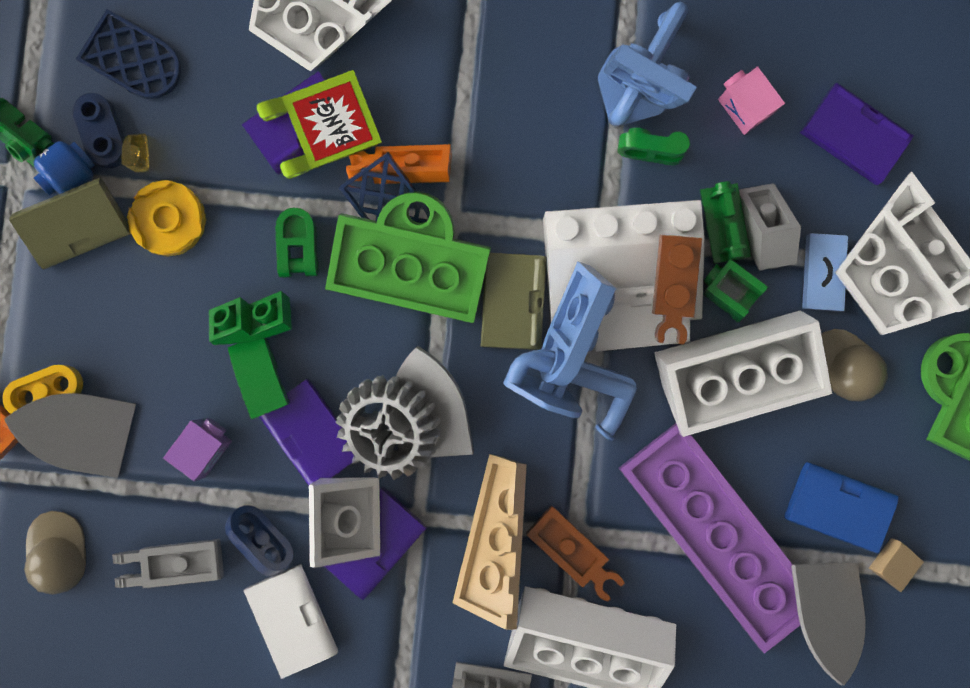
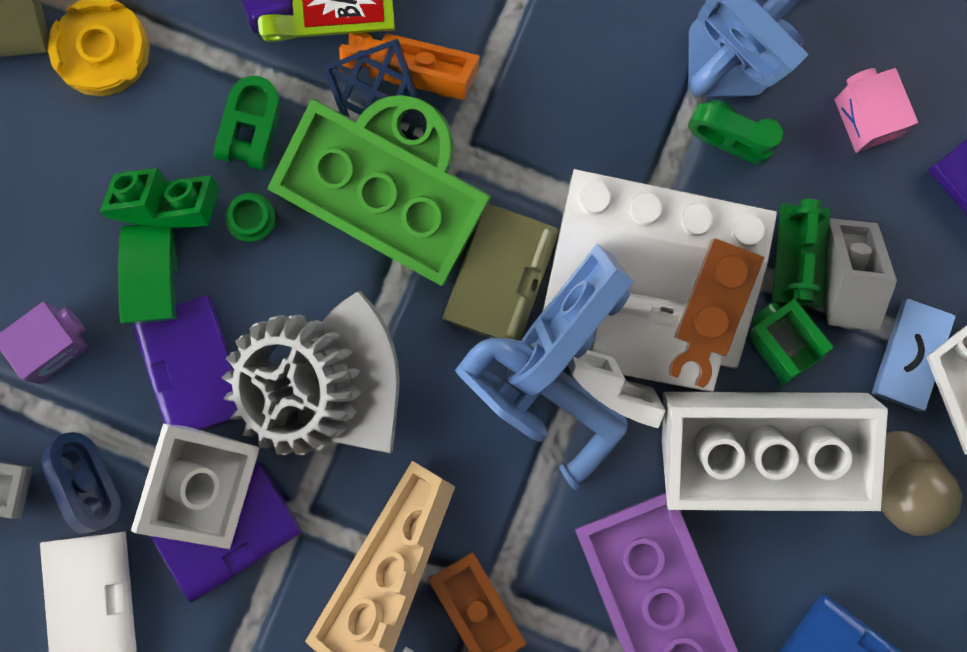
camera: 15 degrees right, 5 degrees down
(319, 313) = (250, 217): none -> green plate
(630, 365) = (605, 382): none -> white slope

